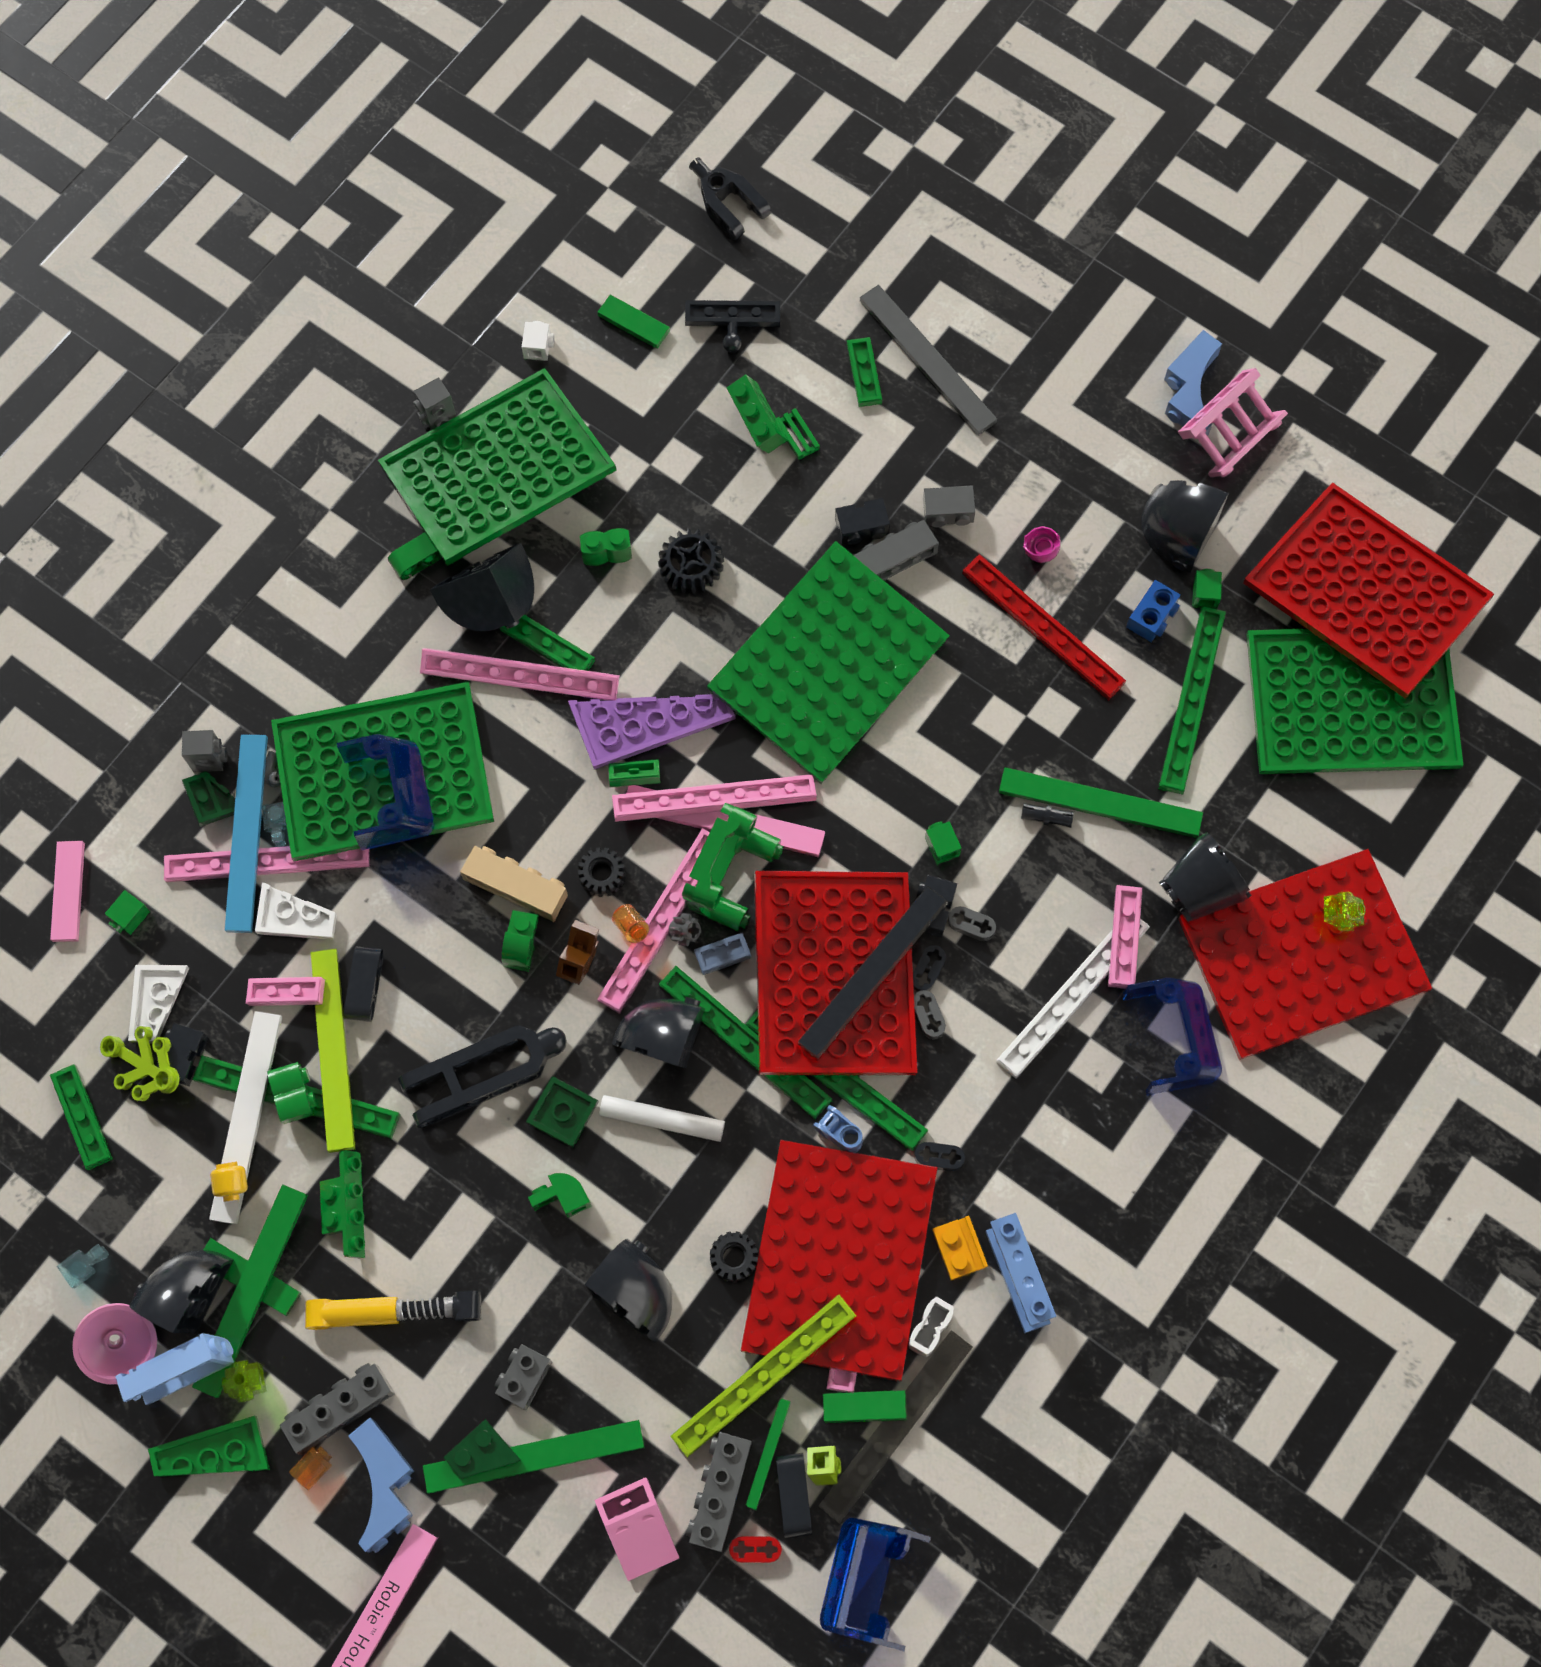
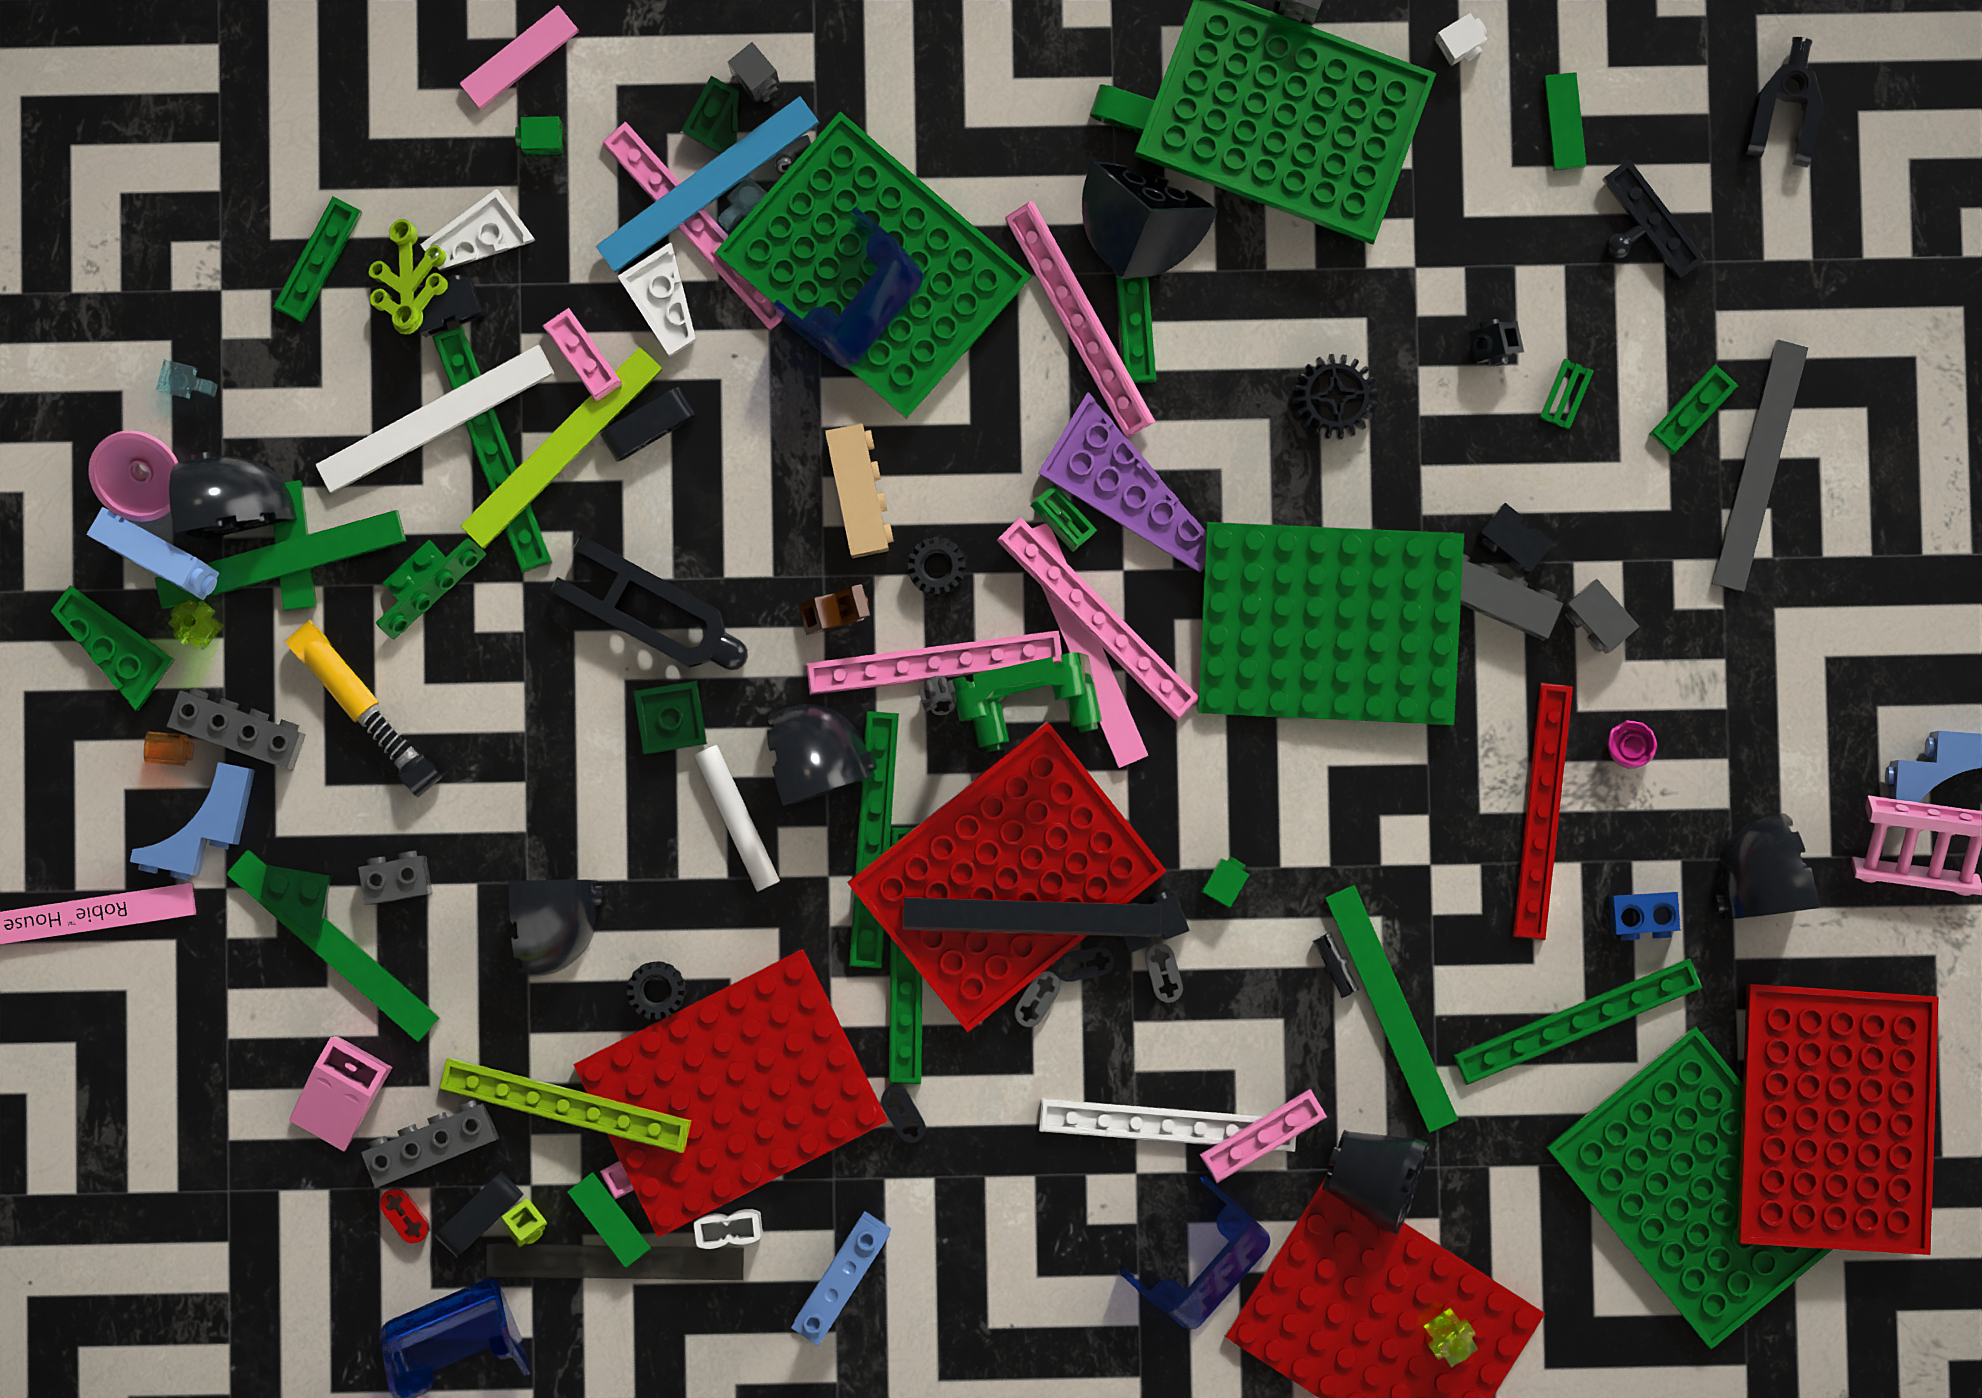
camera: 50 degrees right, 15 degrees up
(228, 1181) = (360, 457): yellow head -> none
(291, 1092) = (488, 445): green brick -> none
(518, 941) = (804, 542): green brick -> none
(566, 1190) = (598, 783): green brick -> none
(603, 547) = (1289, 303): green brick -> none
(630, 923) = (903, 638): clear orange brick -> none
(722, 953) = (944, 750): sand blue plate -> none
(733, 447) = (1496, 342): none -> black brick
(757, 414) = (1552, 337): green brick -> none
(768, 1454) = (497, 1163): green tile -> none
(835, 1127) = (854, 996): medium blue piece -> none
(959, 1248) = (829, 1198): light orange plate -> none
(1207, 588) = (1712, 950): green brick -> none

